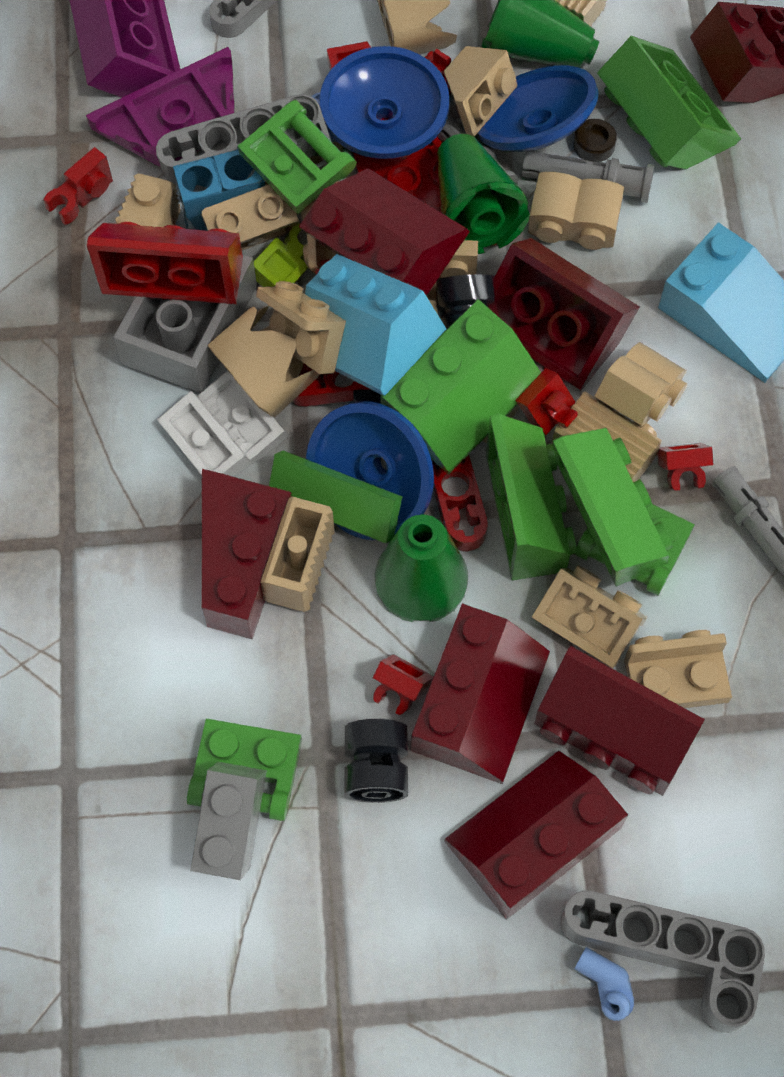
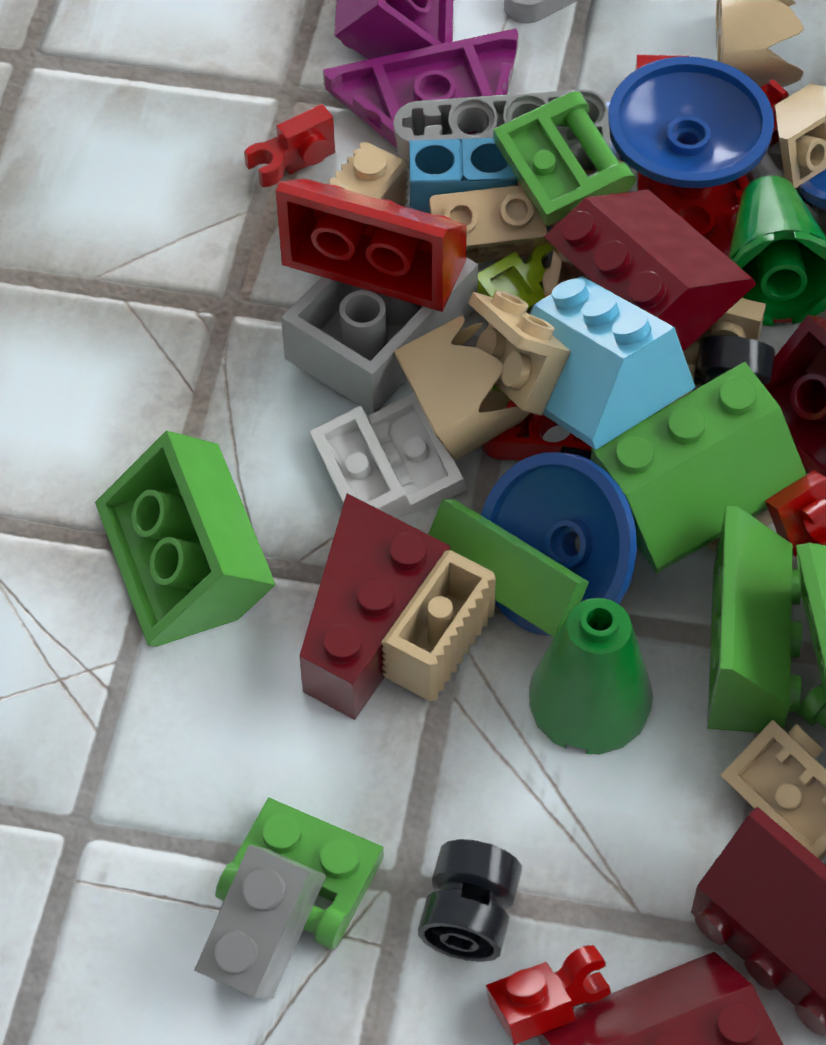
camera: 15 degrees right, 10 degrees down
(85, 531) = (183, 540): none -> bright green slope
(402, 678) = (533, 810): red tile -> none
(446, 820) = (542, 1000): none -> red plate
(475, 513) = (651, 616): red beam -> none
(480, 695) = (627, 853): dark red slope -> none

